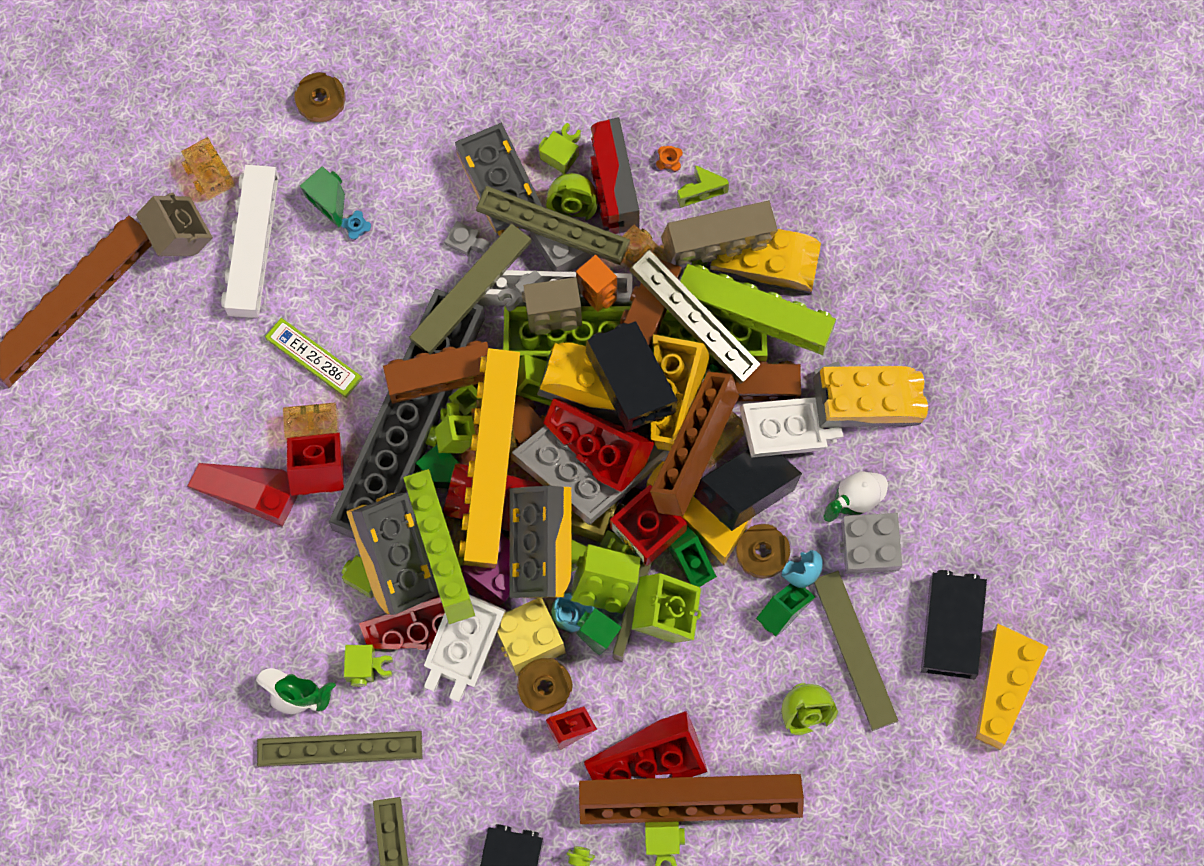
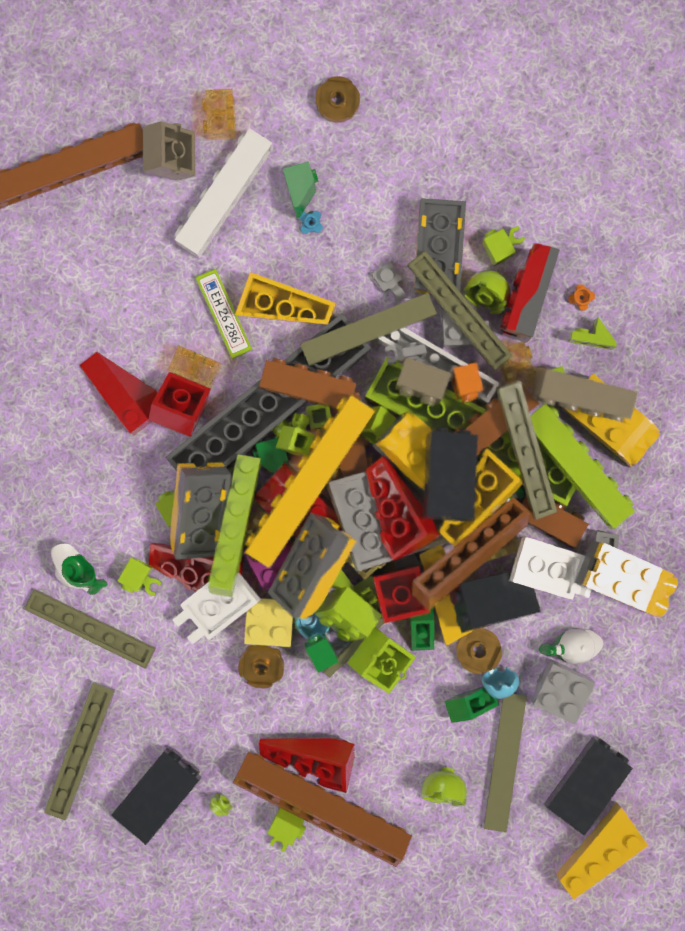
camera: 30 degrees right, 15 degrees up
(370, 312) = (282, 303): none -> yellow wedge
(570, 726) = (264, 706): red slope -> none

